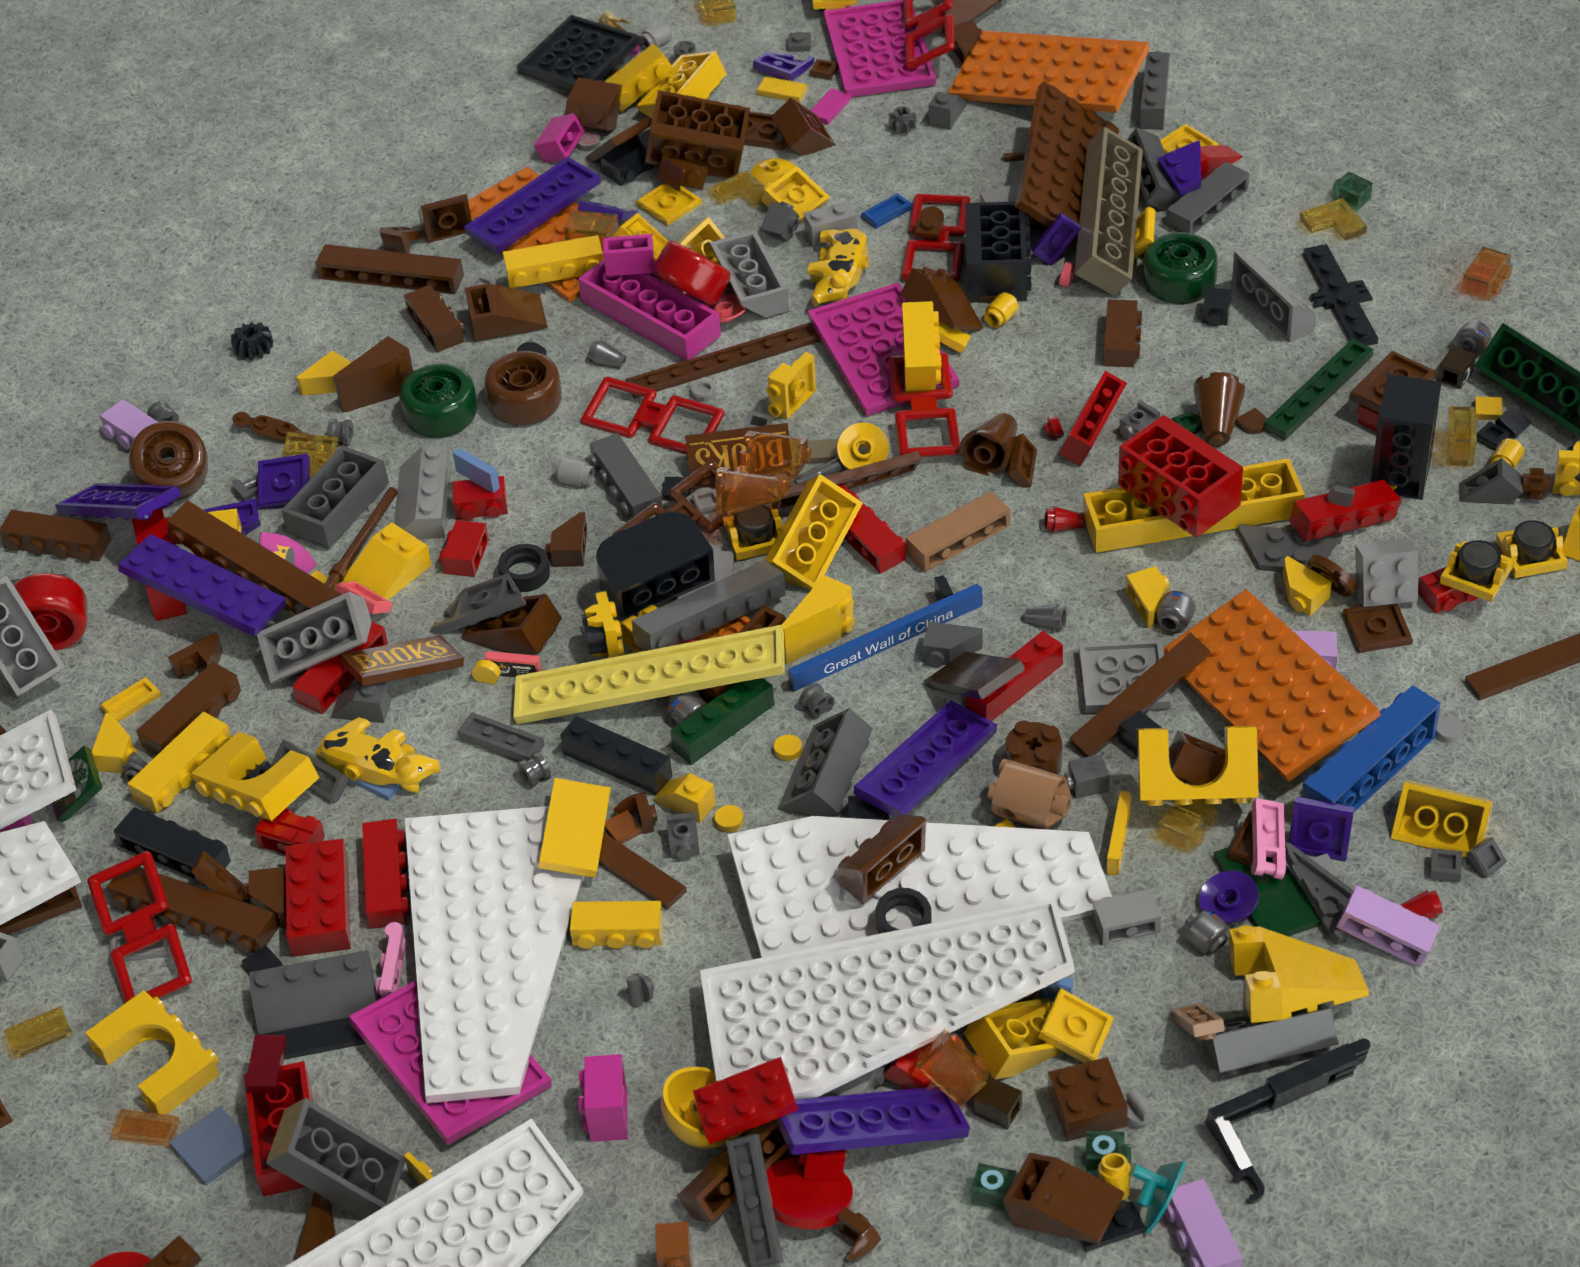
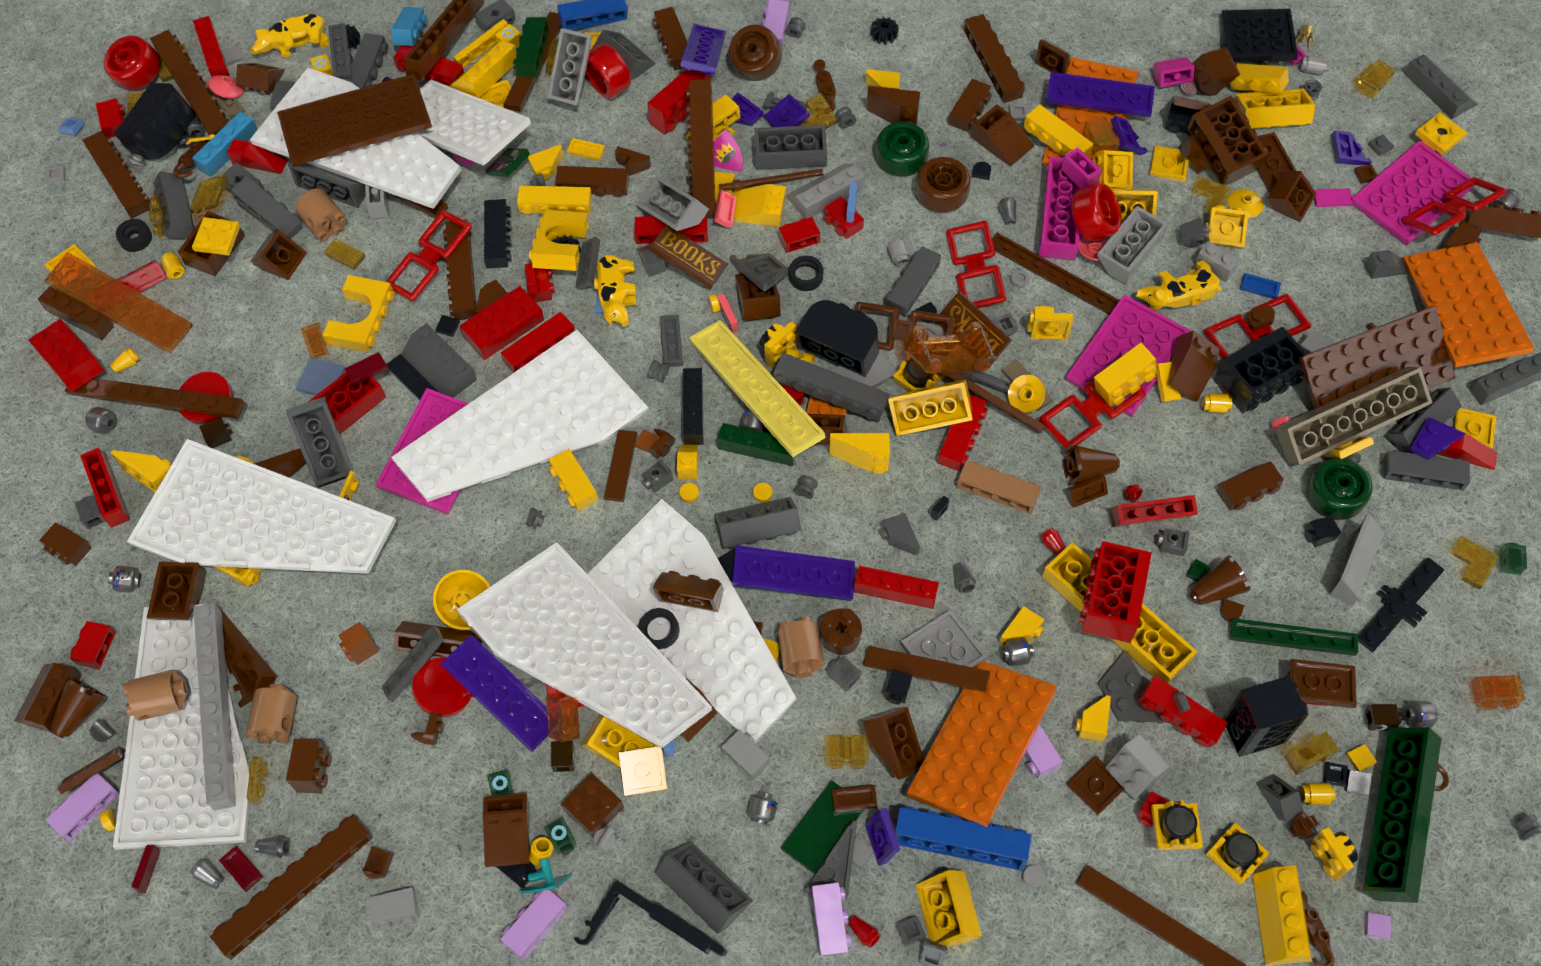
camera: 55 degrees right, 15 degrees up
(202, 585) = (666, 127): dark purple plate -> none
(217, 877) = (480, 268): reddish brown plate -> none
(391, 960) = (479, 386): bright pink plate -> none
(399, 238) = (1022, 45): reddish brown slope -> none
(568, 543) = (841, 283): reddish brown slope -> none
(574, 827) = (623, 417): yellow tile -> none
(604, 1098) = (443, 546): dark pink brick -> none
(745, 1100) = (463, 619): red plate -> none
(782, 89) = (1326, 162): yellow tile -> none
(884, 637) = (882, 496): blue tile -> none
(902, 120) = (1351, 246): dark grey gear -> none
(974, 675) = (872, 563): dark brown tile -> none
(1056, 239) = (1303, 398): dark purple plate -> none
(1119, 833) = (810, 715): yellow tile -> none
(1198, 1021) = (679, 839): medium nougat plate -> none
(1226, 887) = (797, 799): dark purple dish -> none
(1236, 780) = (848, 720): yellow arch -> none
(1268, 838) = (852, 807): bright pink plate -> none
(1290, 974) = (754, 885): yellow wedge -> none
(1341, 581) = (1112, 728): reddish brown tile -> none

